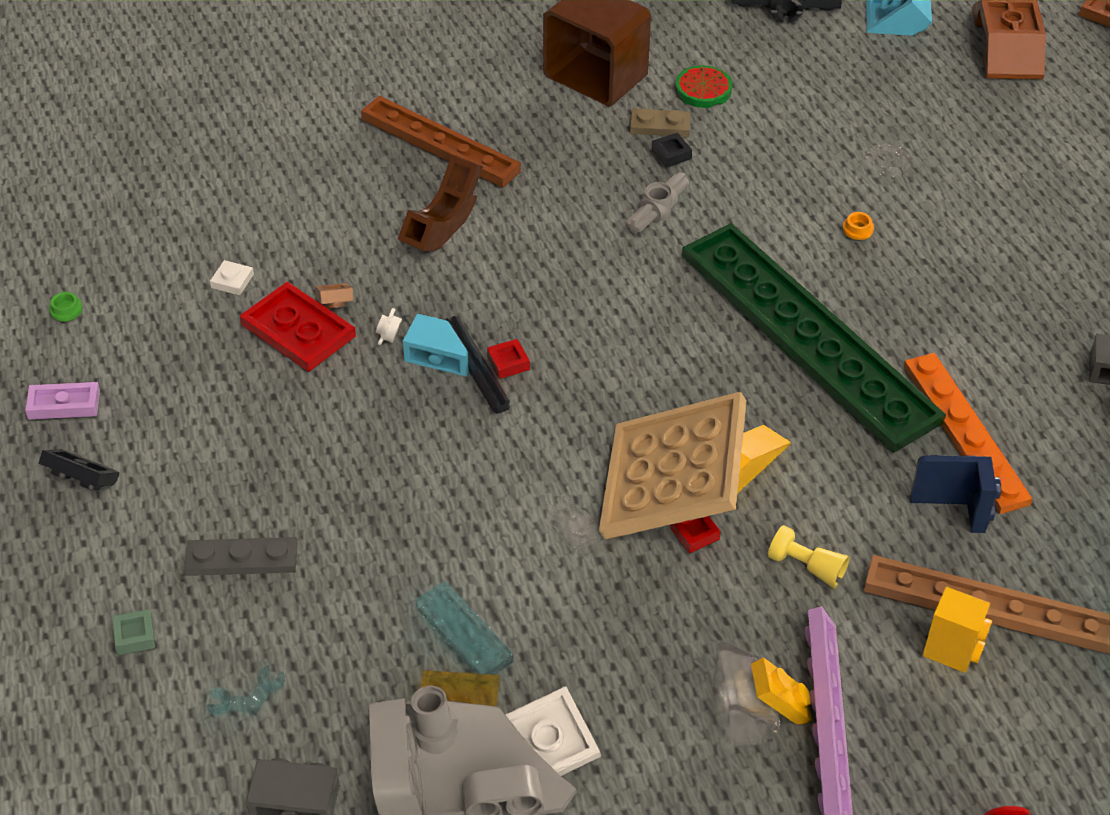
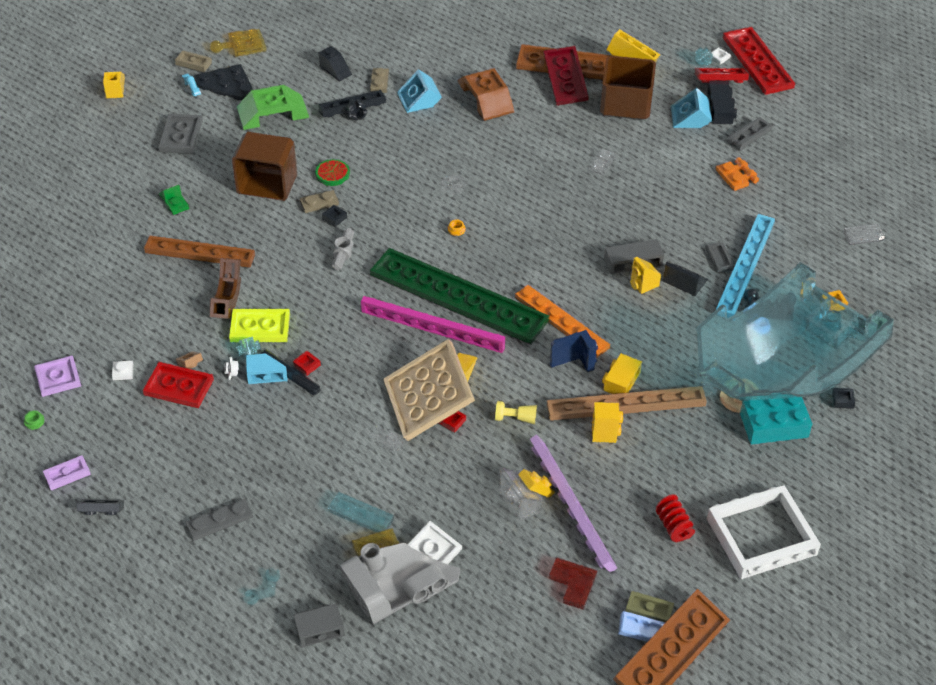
camera: 25 degrees left, 0 degrees up
(133, 632) = (184, 579): sand green plate -> none
(136, 255) = (57, 376): none -> lavender tile
(431, 303) = (248, 347): none -> clear light blue gear
(445, 56) = (174, 199): none -> green slope
(468, 277) = (262, 324): none -> neon yellow plate
(744, 366) = (433, 324): none -> dark pink plate
(1028, 558) = (621, 375): none -> yellow brick

